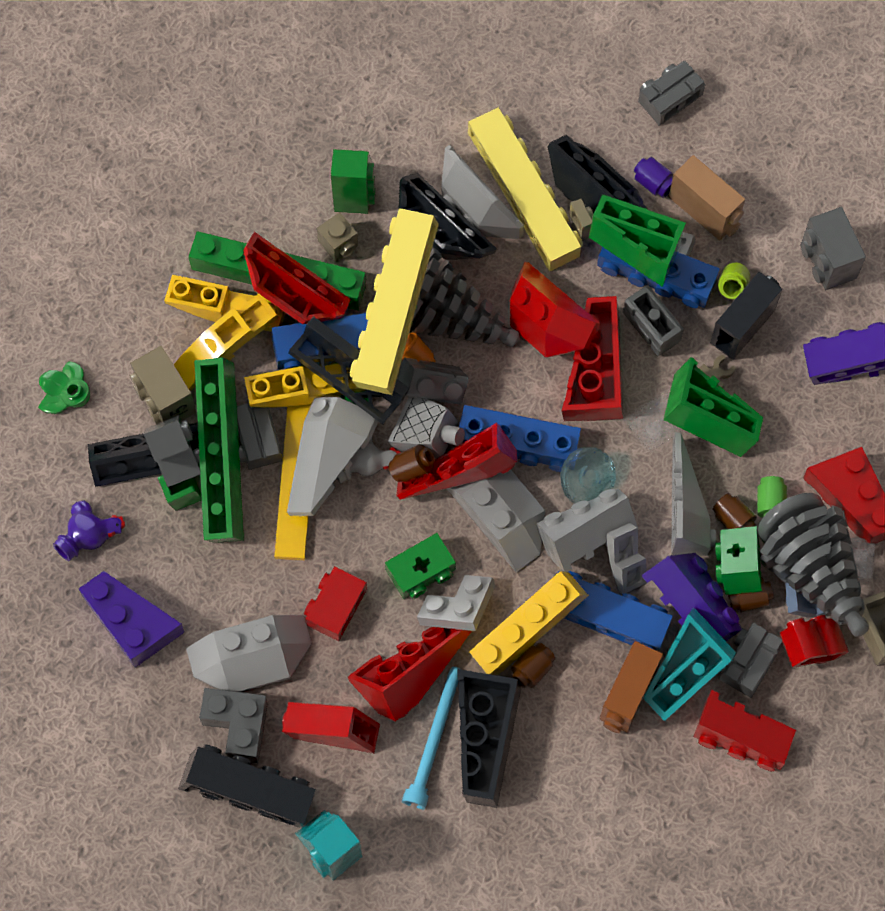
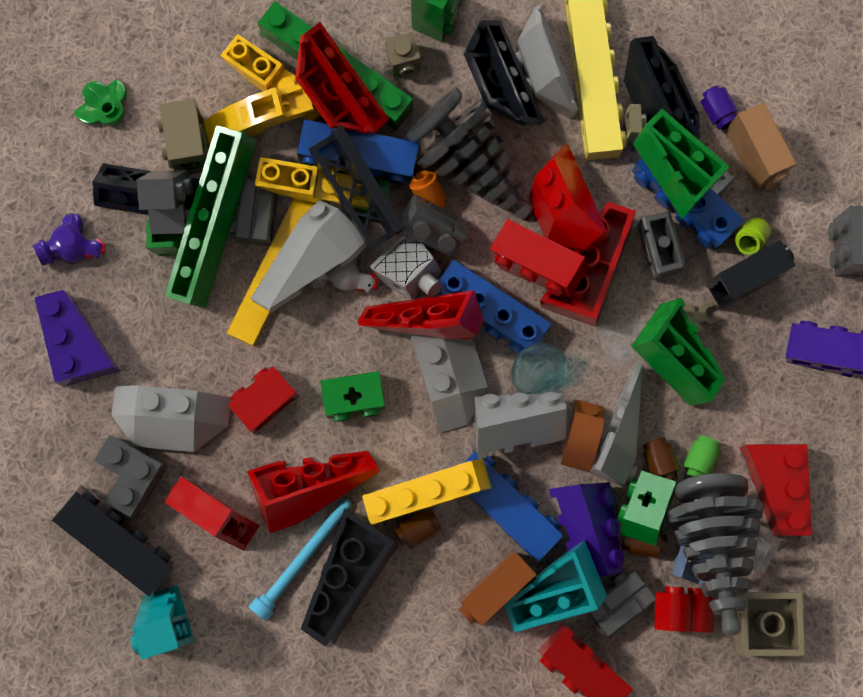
camera: 20 degrees right, 10 degrees up
(394, 301) = (420, 139): light yellow brick -> none
(411, 463) = (381, 297): reddish brown brick -> none
(461, 611) = (374, 452): light grey plate -> none
(544, 372) = (538, 259): none -> red wedge
(624, 558) = (541, 464): light grey slope -> none
(653, 520) = (583, 435): none -> dark orange brick
(671, 92) = (769, 31): dark grey brick -> none

